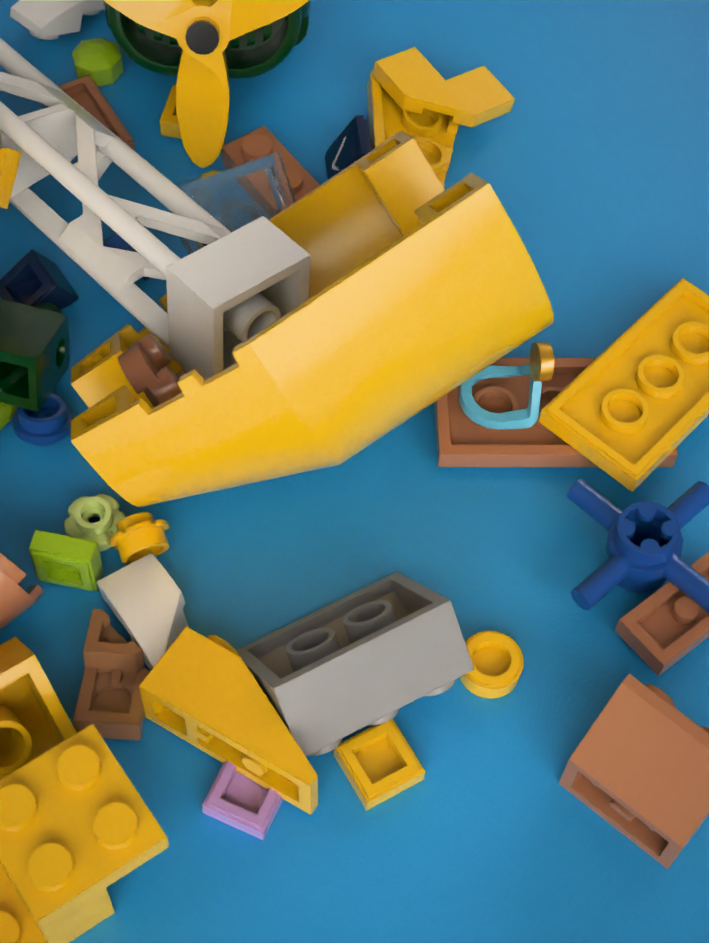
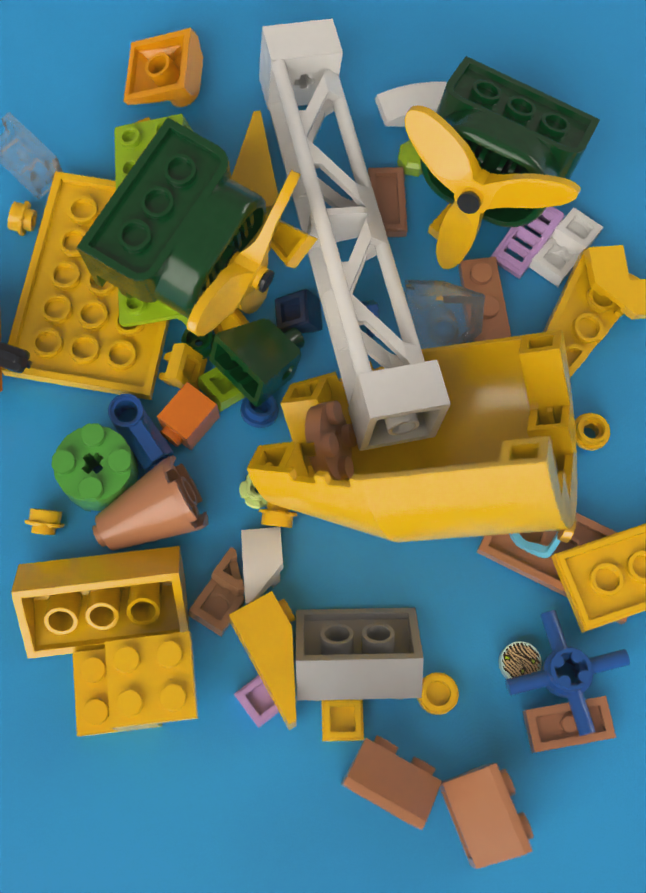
camera: 30 degrees right, 15 degrees up
(66, 560) = (230, 509): lime tile -> none
(302, 64) = (543, 225): none -> lavender slope
(343, 84) = (564, 246): none -> white slope
(348, 147) = (537, 307): dark blue slope -> none
(499, 804) = (392, 782): none -> nougat slope
(568, 566) = (519, 659): none -> tile

